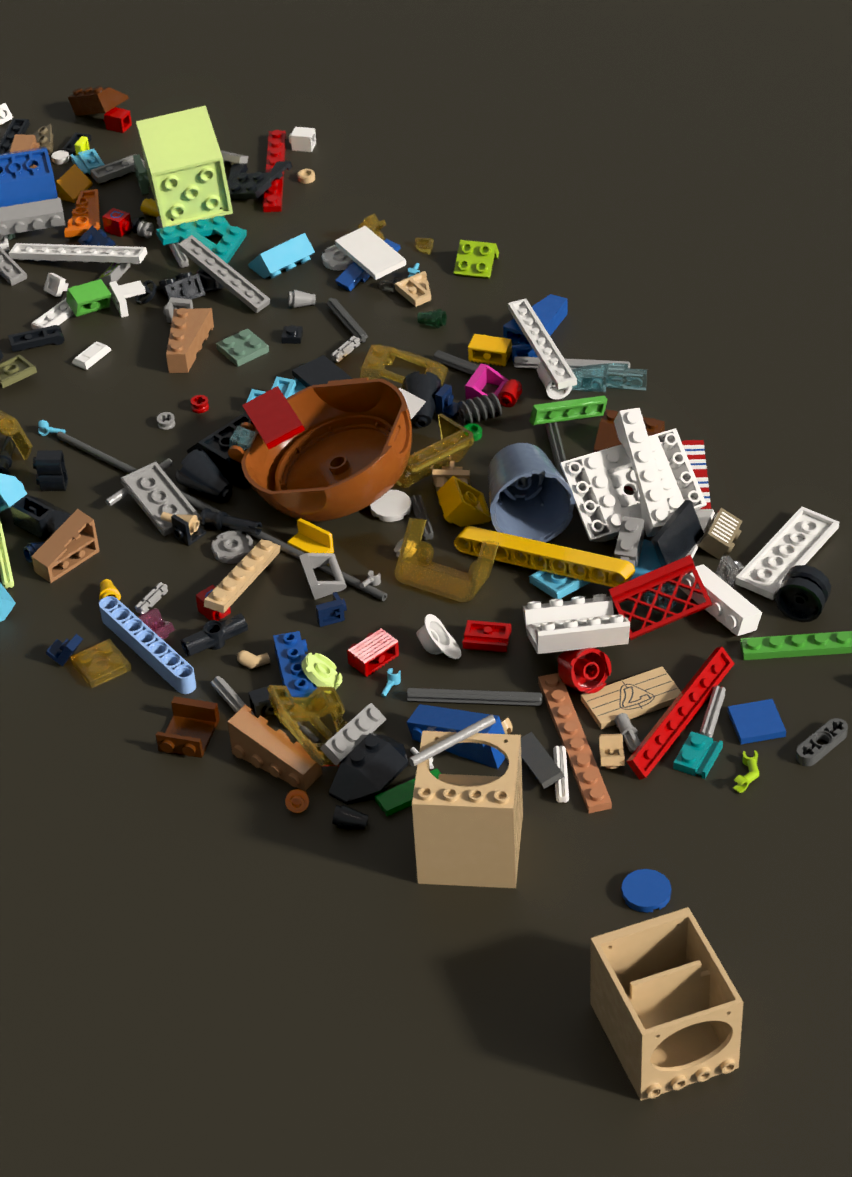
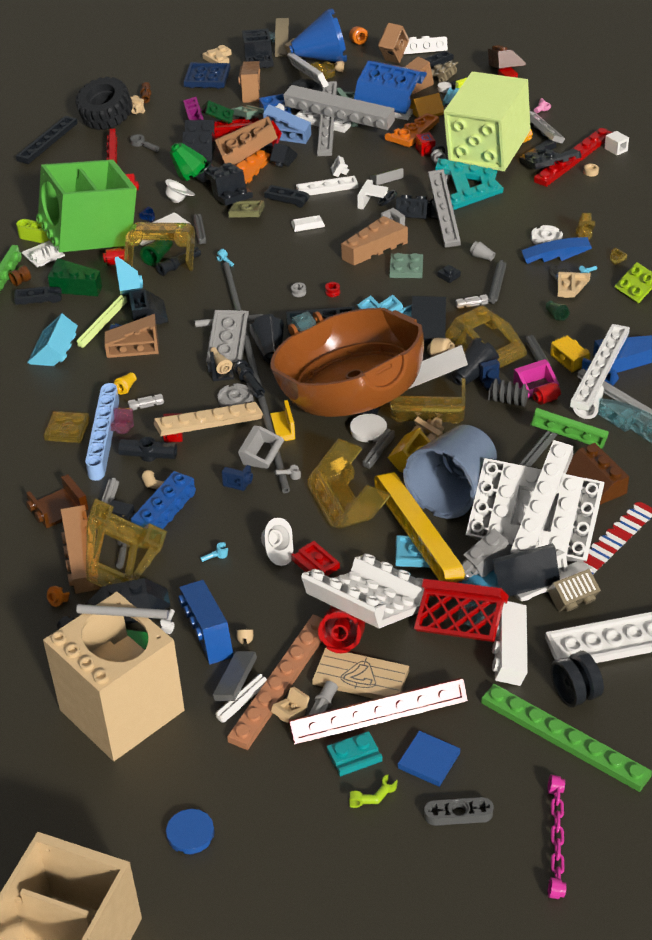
camera: 40 degrees right, 0 degrees up
(51, 470) = (183, 283): black brick -> none
(62, 651) = (52, 403): dark blue bracket -> none
(82, 253) = (374, 152): white plate -> none
(88, 297) = (345, 183): bright green brick -> none
(96, 238) = (398, 150): dark blue bracket -> none
(273, 417) = (335, 317): red tile -> none
(282, 257) = (503, 216): medium azure slope -> none
(321, 671) = (174, 516): yellowish green tile -> none
(353, 733) = (151, 570): light grey plate -> none
(370, 252) = (561, 240): white tile -> none
(373, 652) = (226, 524): brick -> none
(474, 696) = (256, 601): dark grey axle -> none
(475, 429) = (488, 407): green tile -> none
(713, 710) = (404, 727): light grey axle -> none
(728, 569) = (548, 623): clear tile -> none

